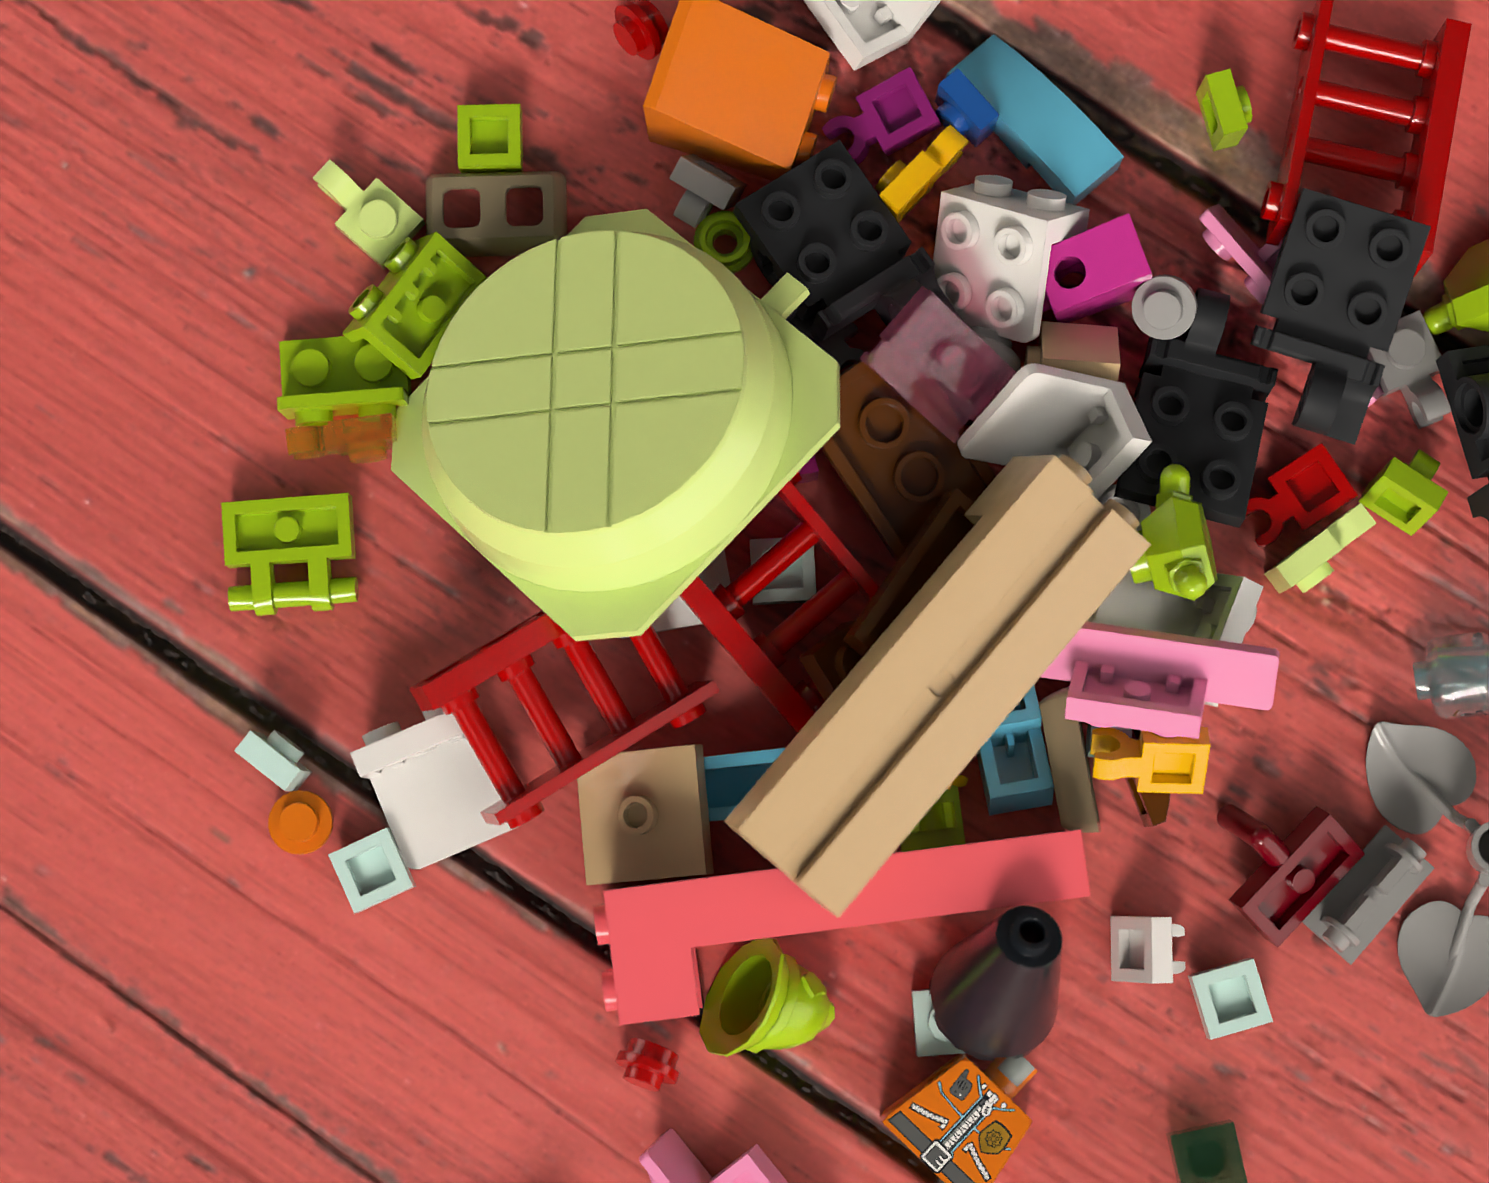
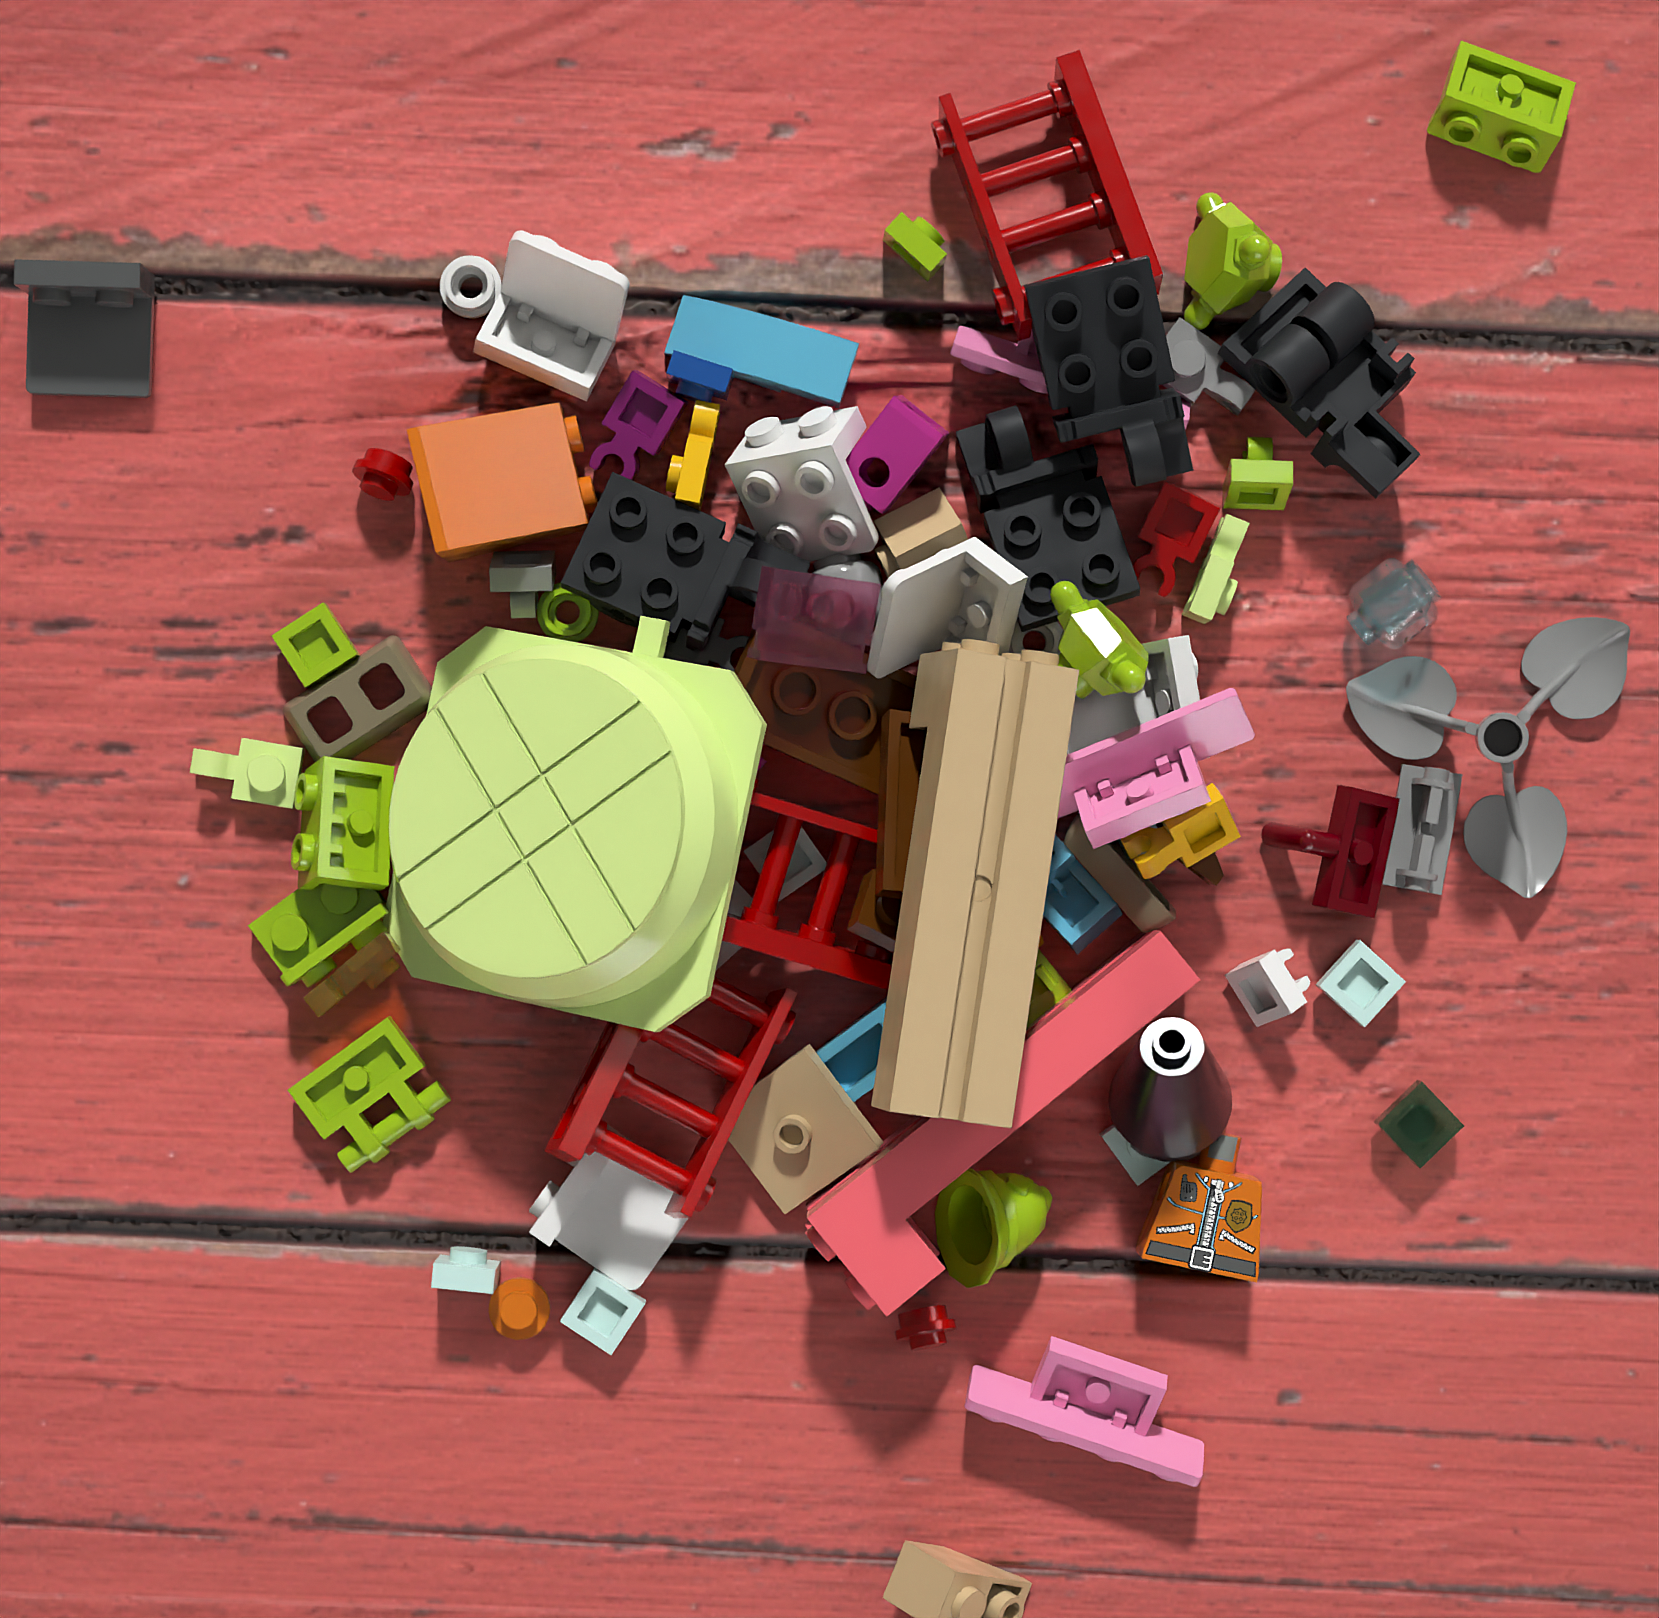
camera: 35 degrees left, 5 degrees up
(1164, 307) = (968, 451): light grey plate -> none

